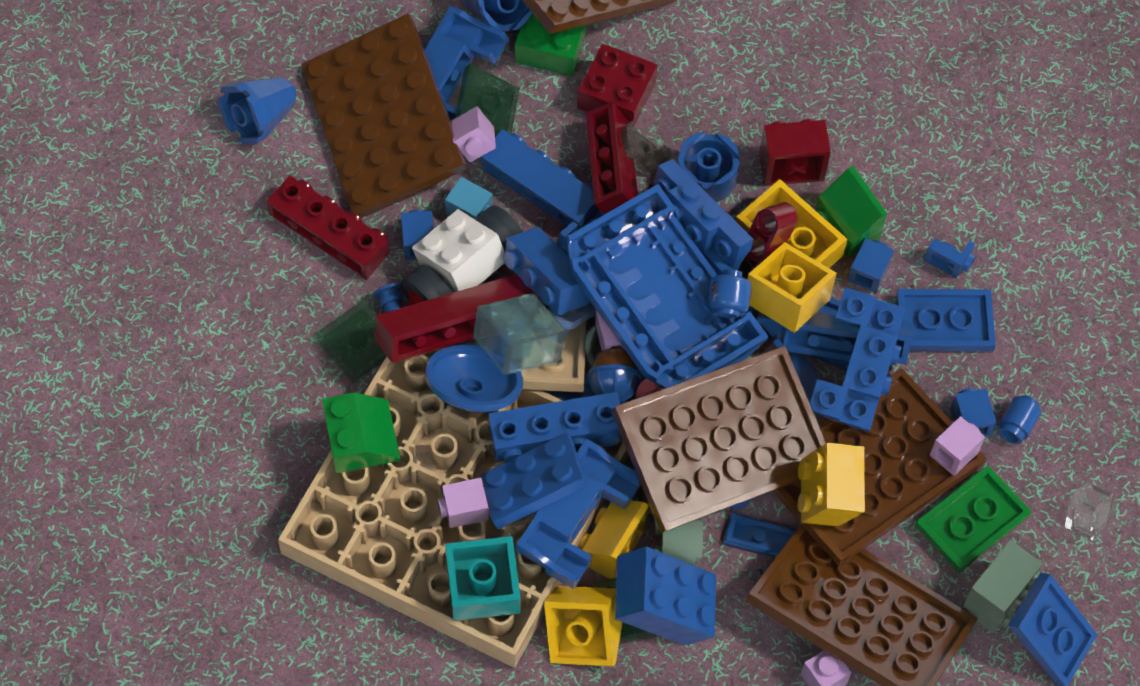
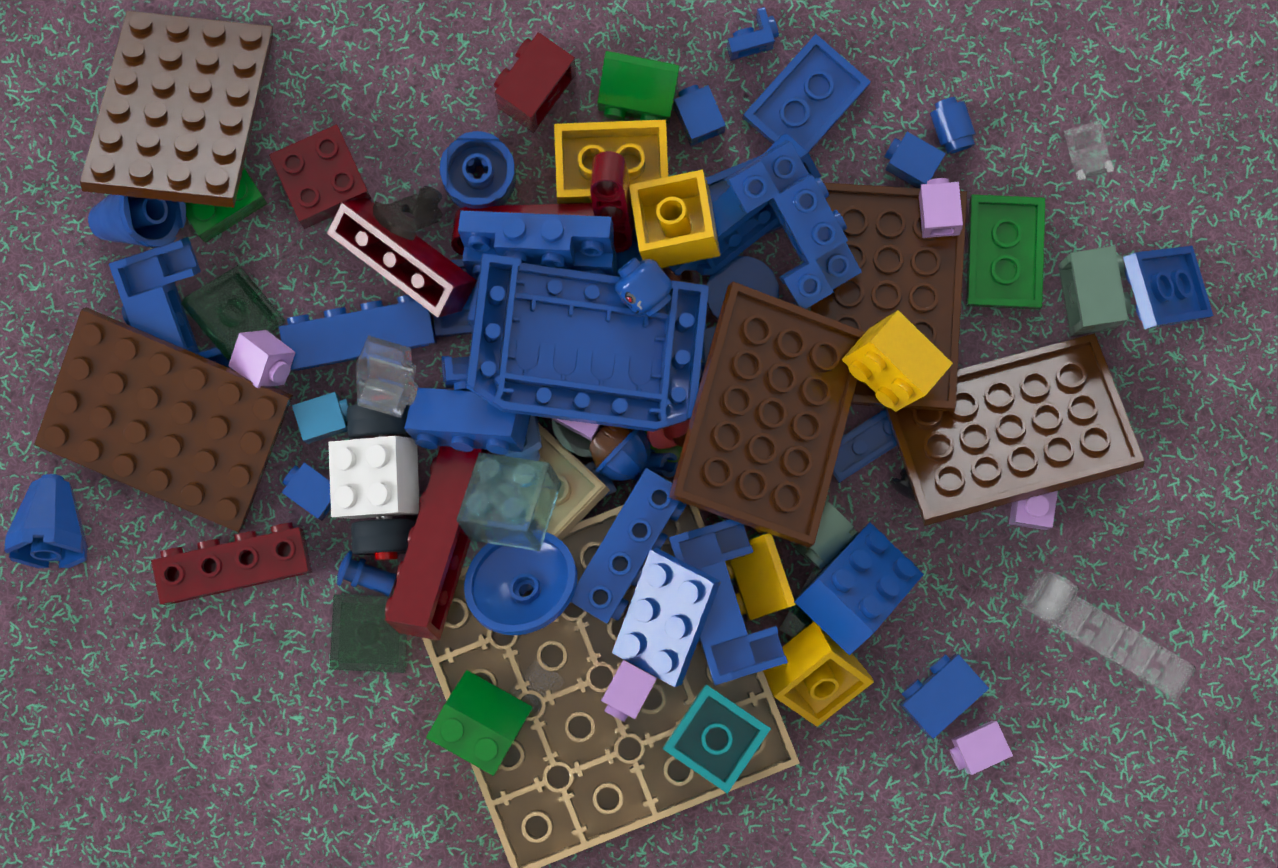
camera: 50 degrees left, 20 degrees up
(529, 205) = (385, 377): none -> clear piece

